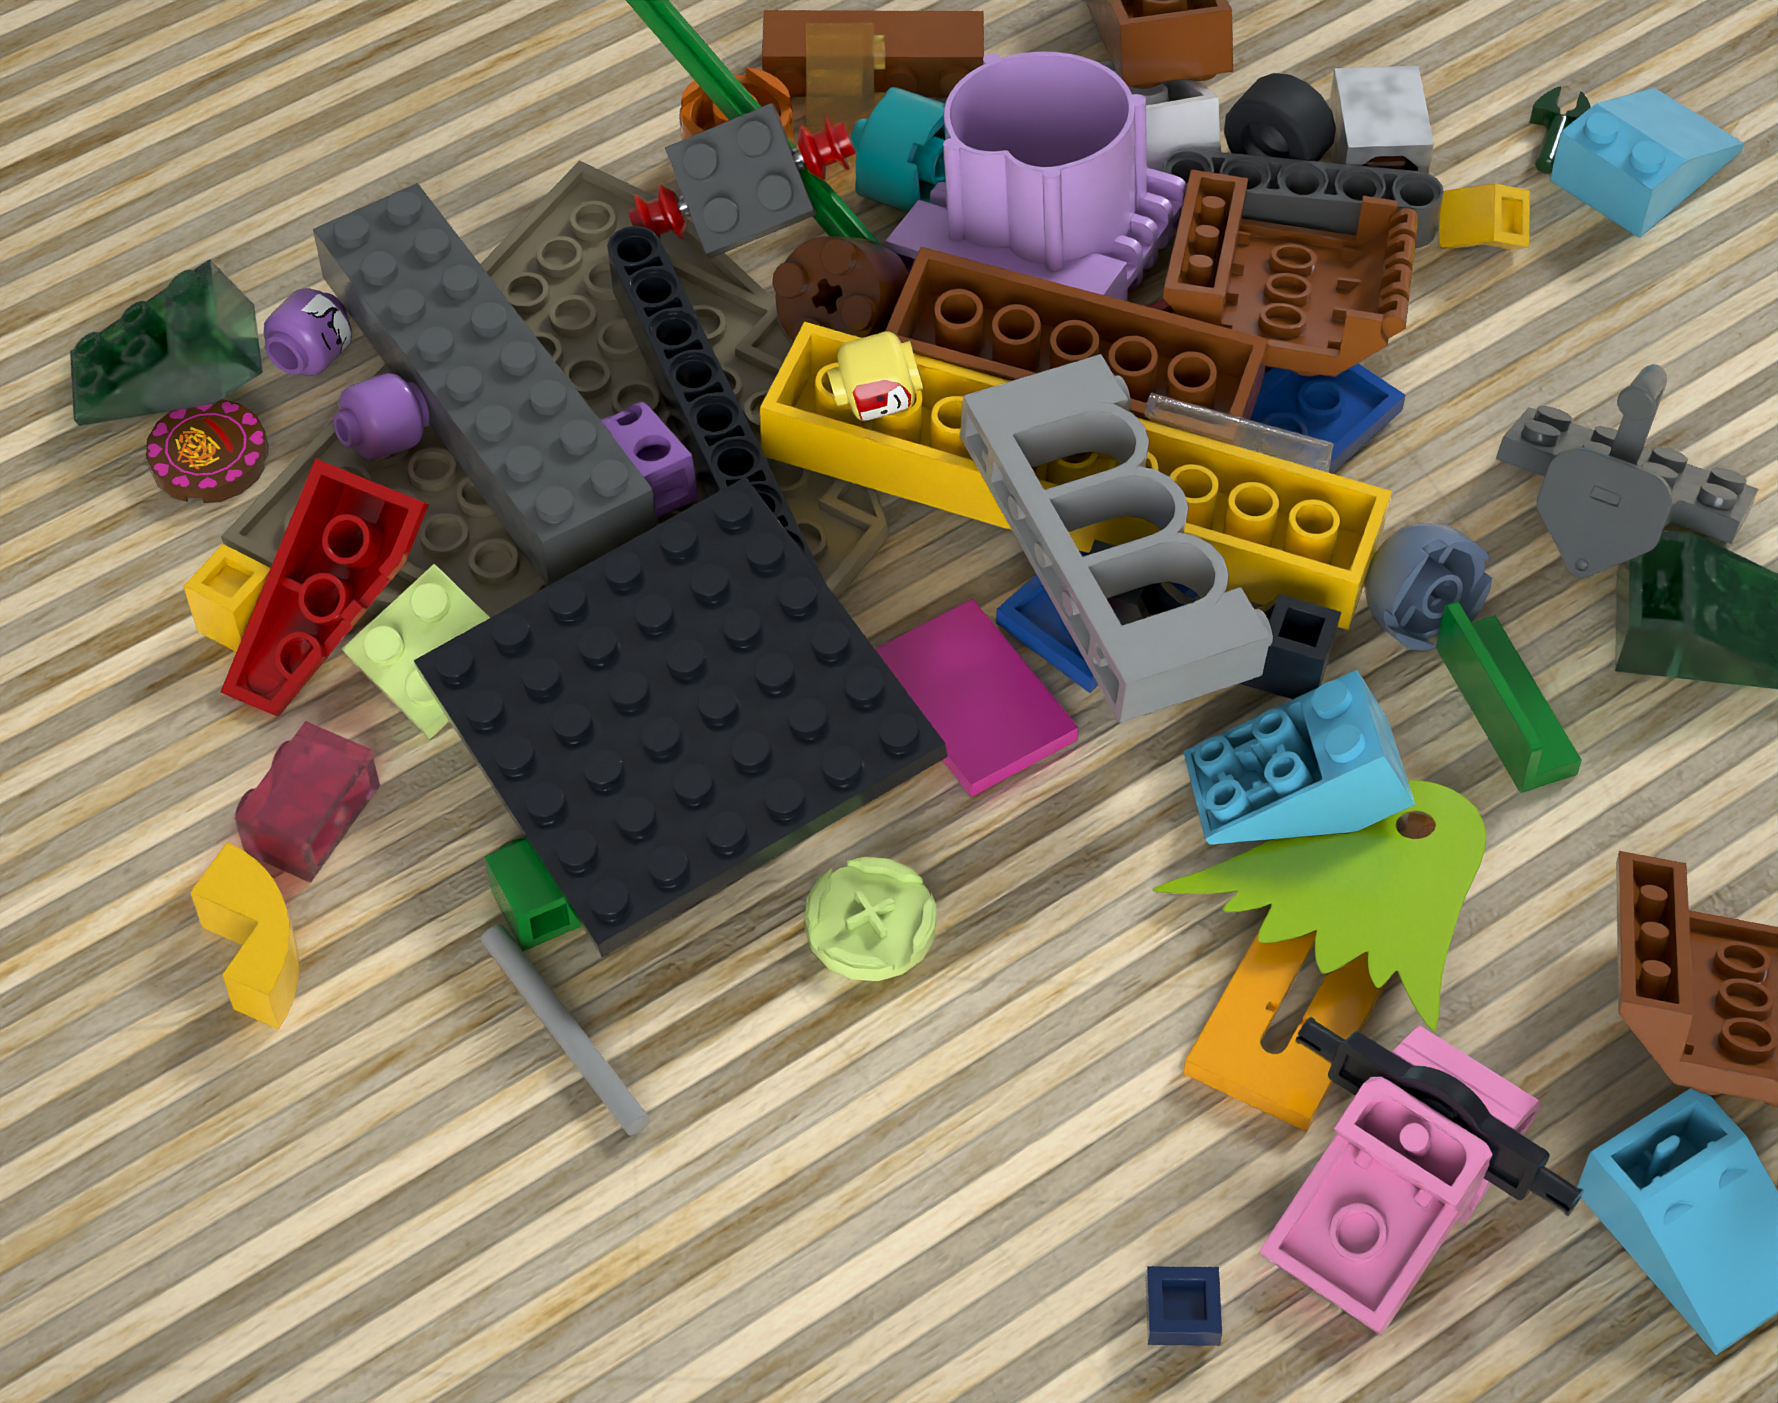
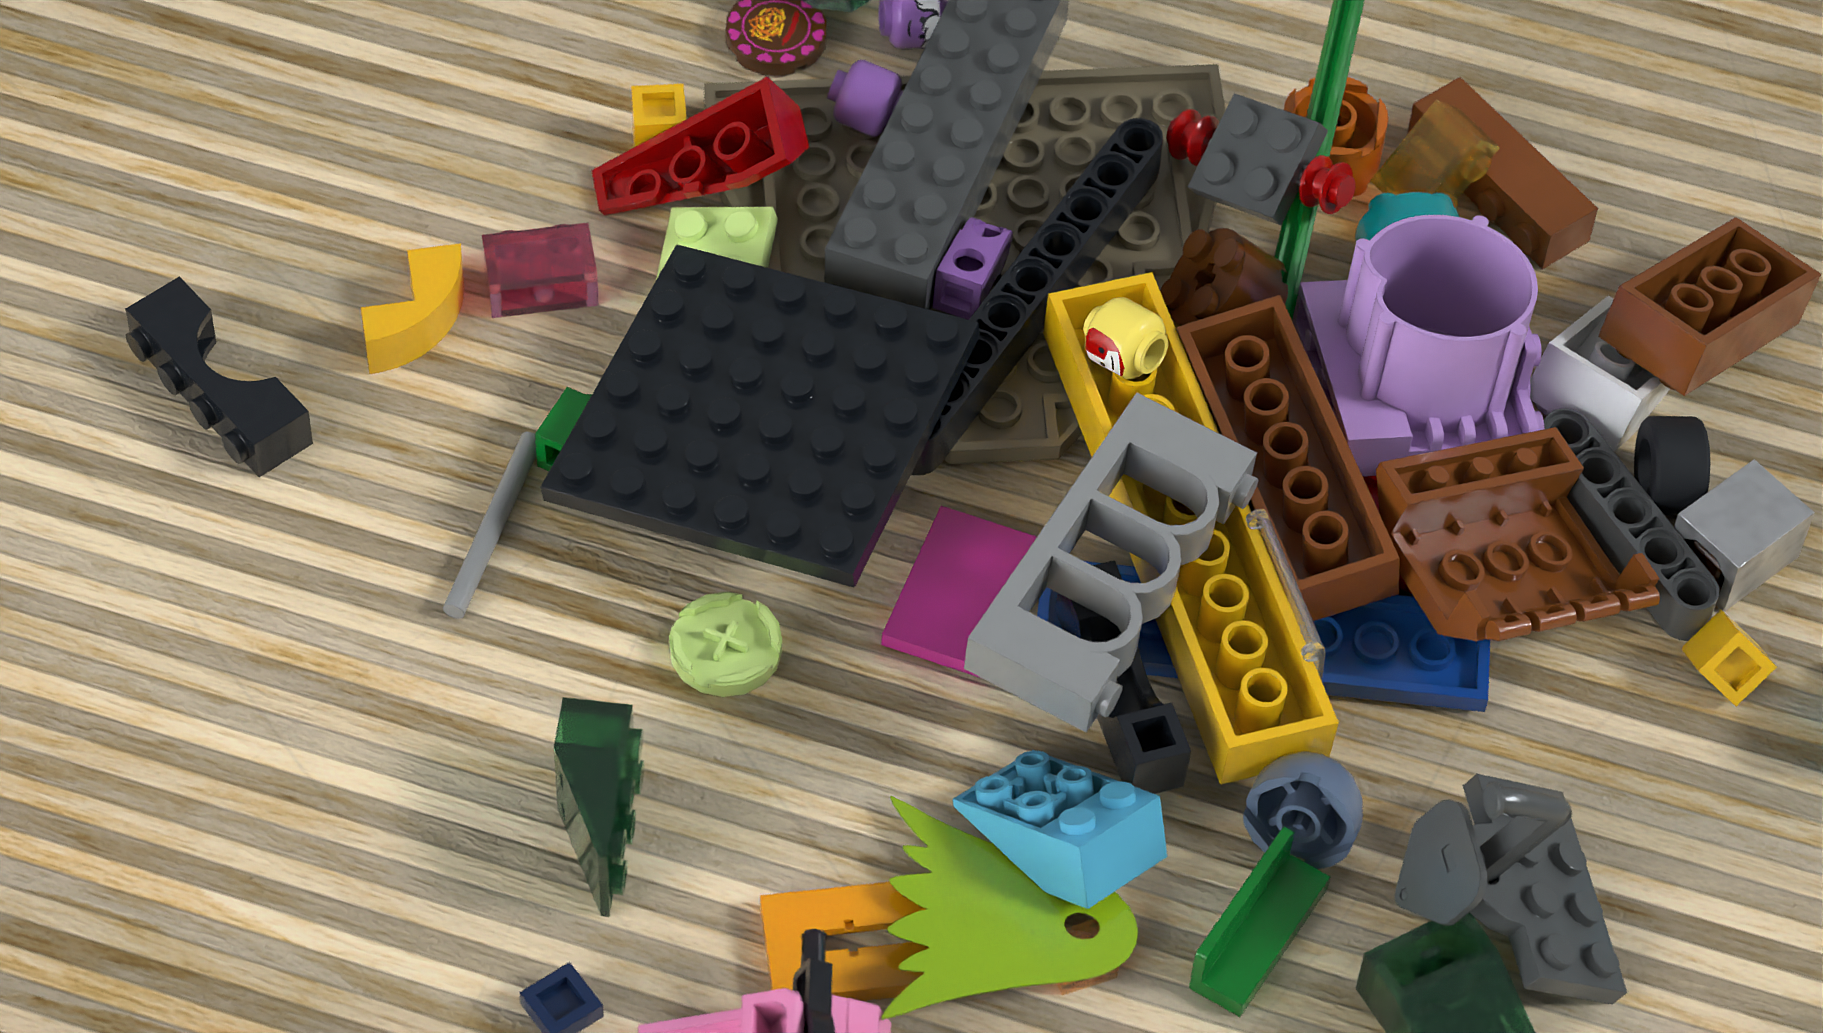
camera: 50 degrees right, 0 degrees up
(254, 1162) = (255, 419): none -> black arch
(988, 1123) = (595, 789): none -> clear green slope

